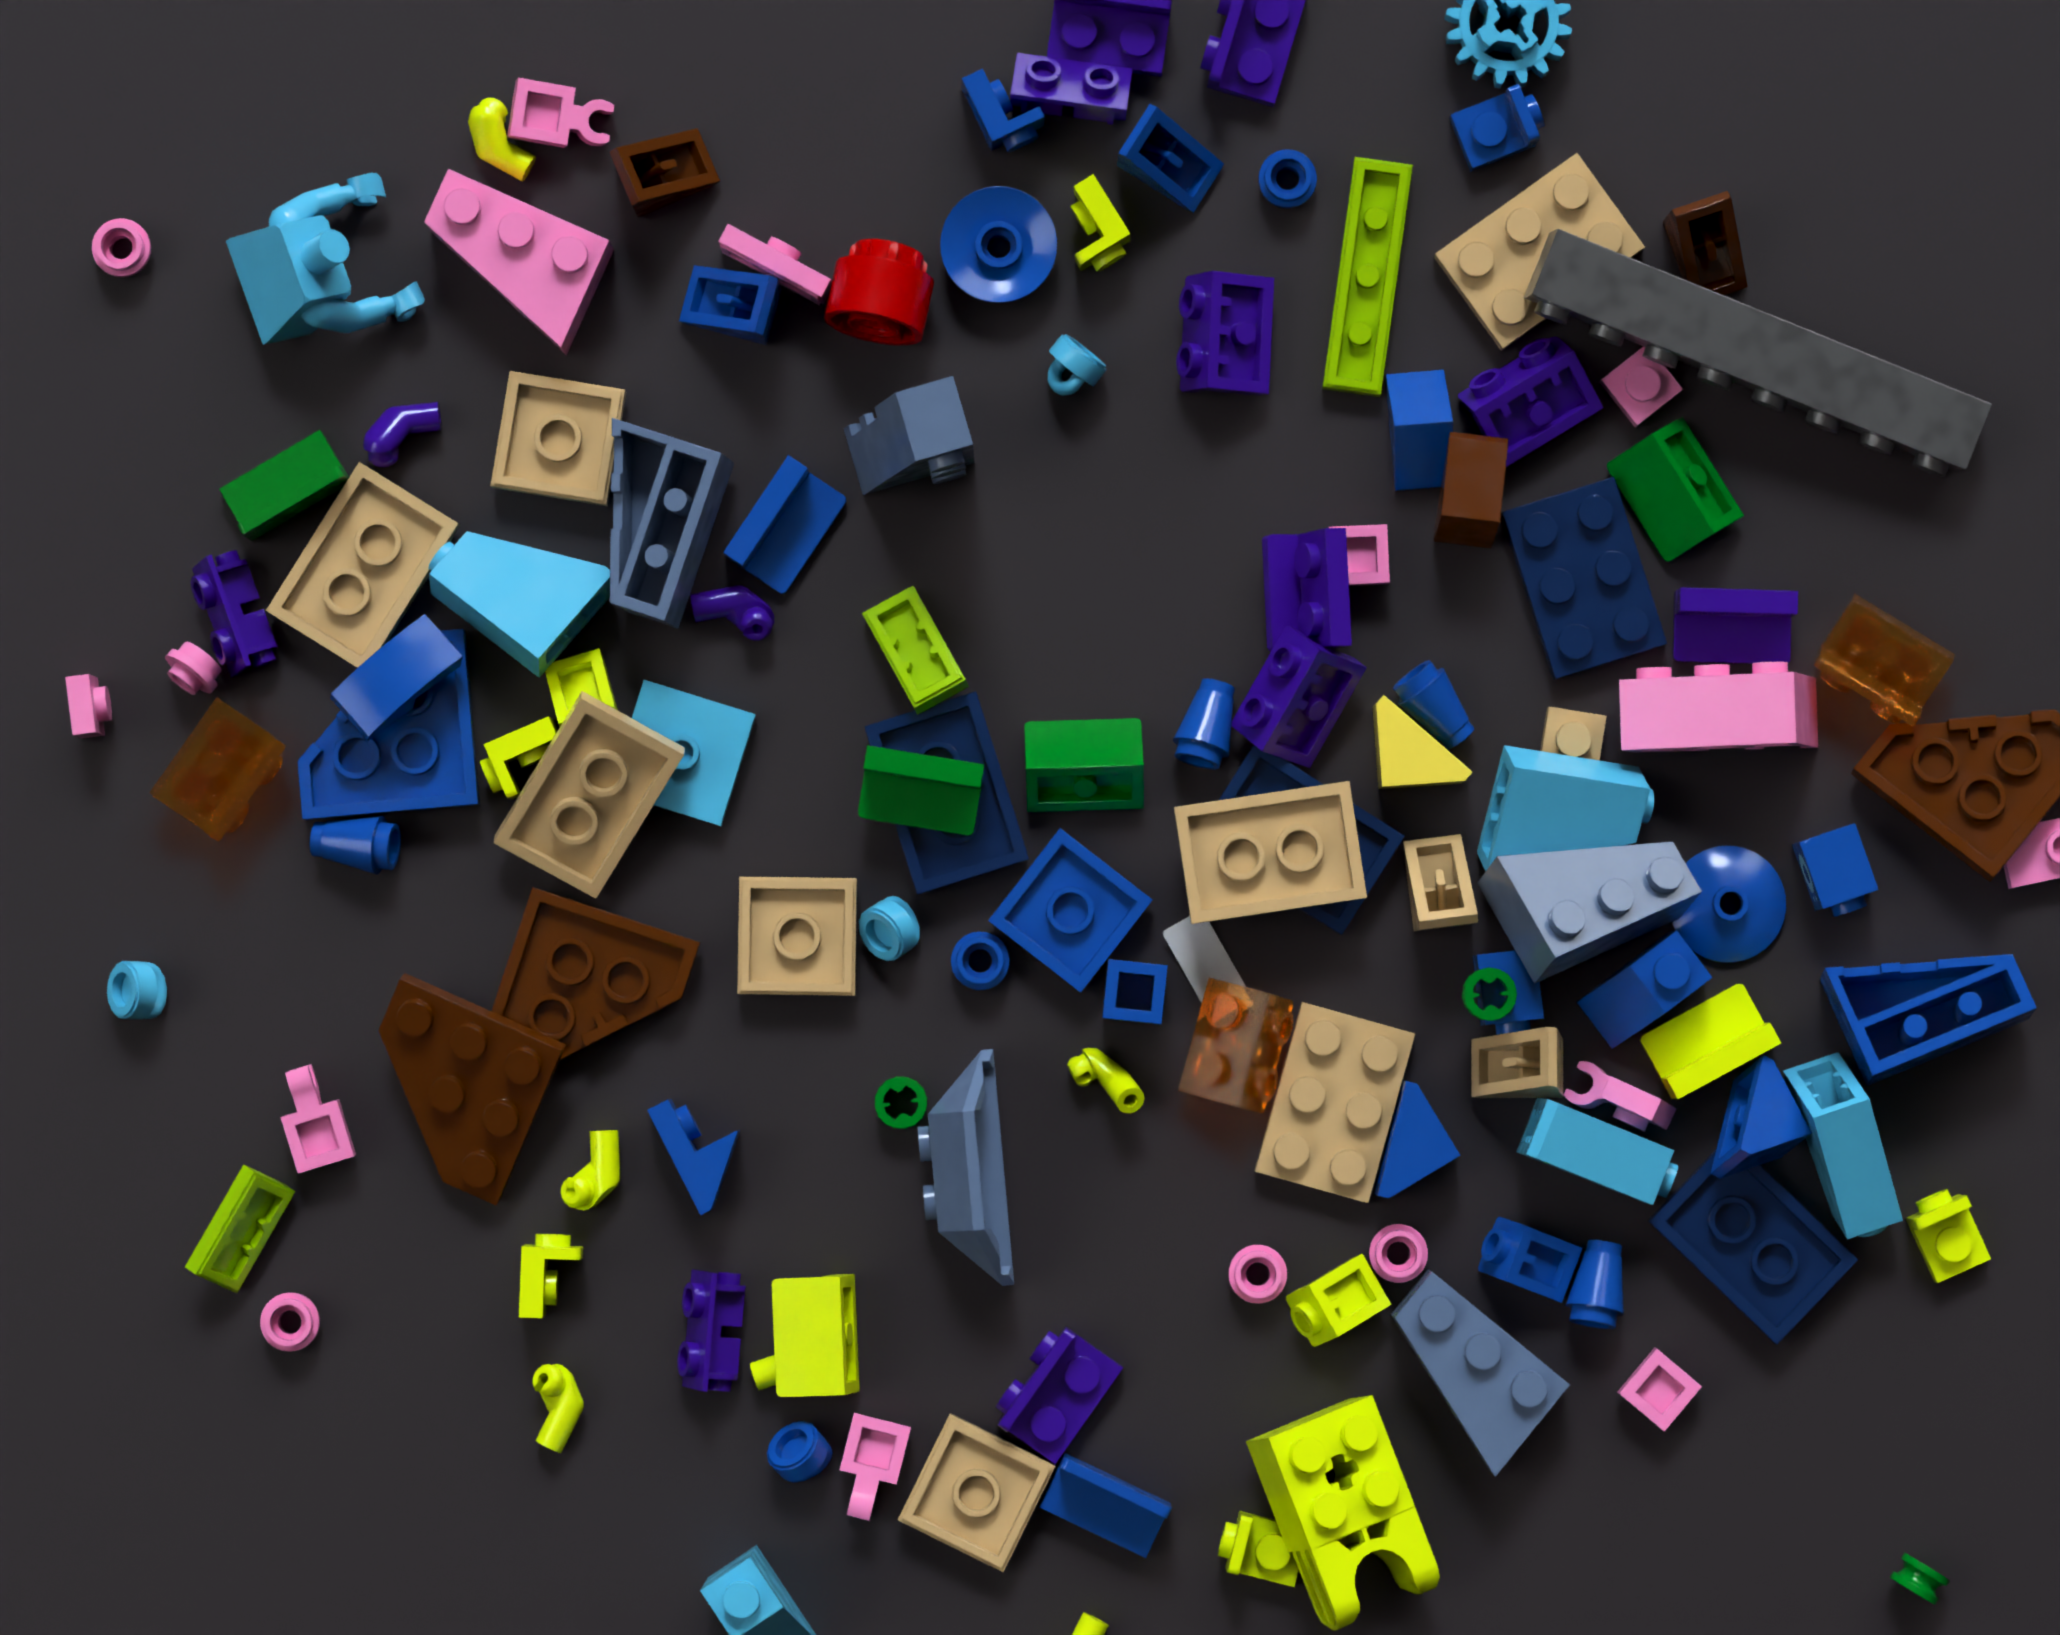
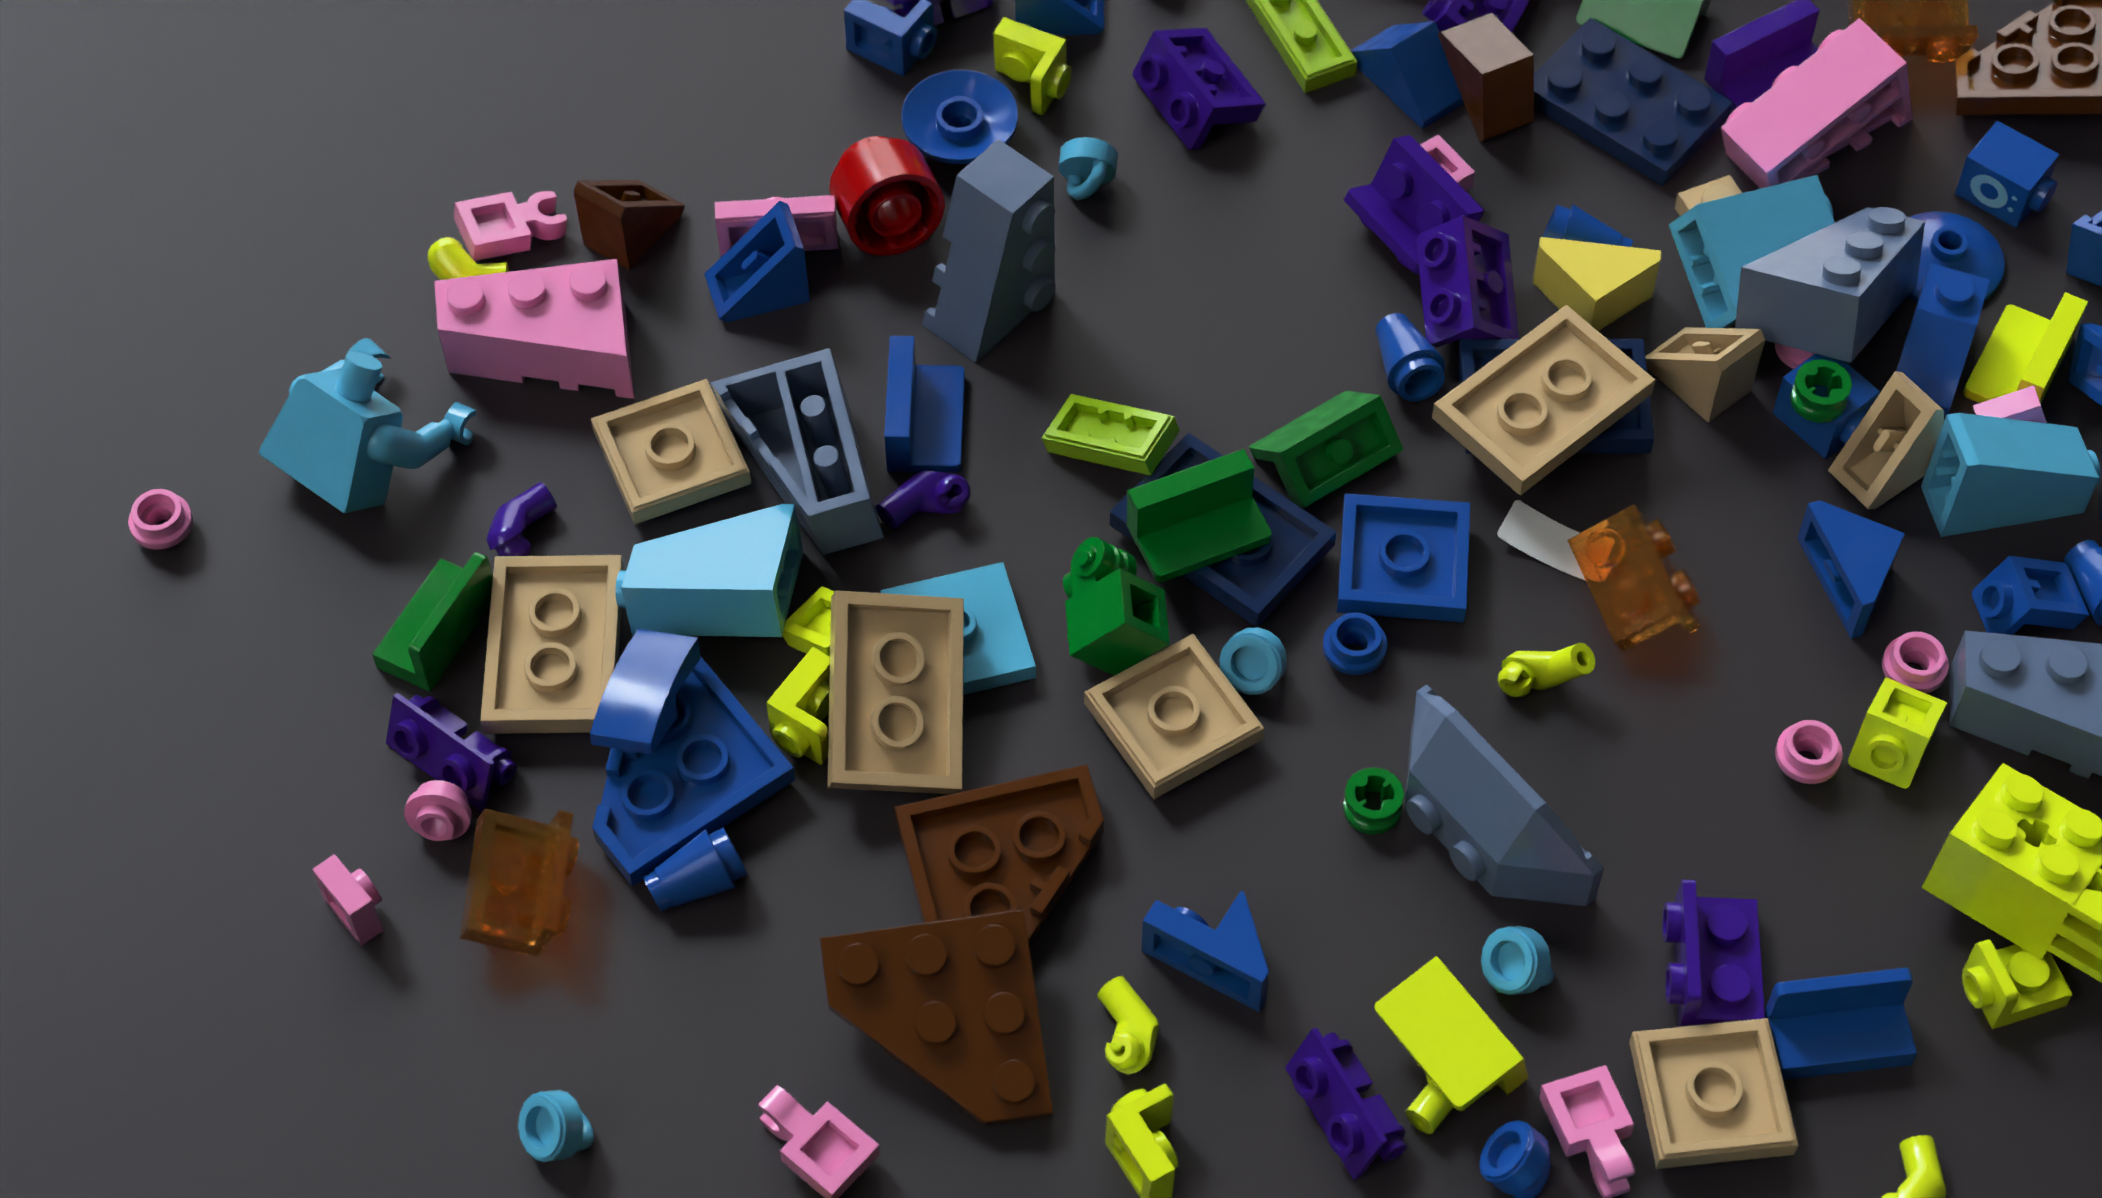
camera: 30 degrees left, 30 degrees down
(797, 821) = (1110, 611): none -> green brick
(910, 1304) = (1516, 960): none -> medium azure tile
(1134, 991) = (1514, 574): blue brick -> none
(1334, 1102) = (1758, 582): tan plate -> none

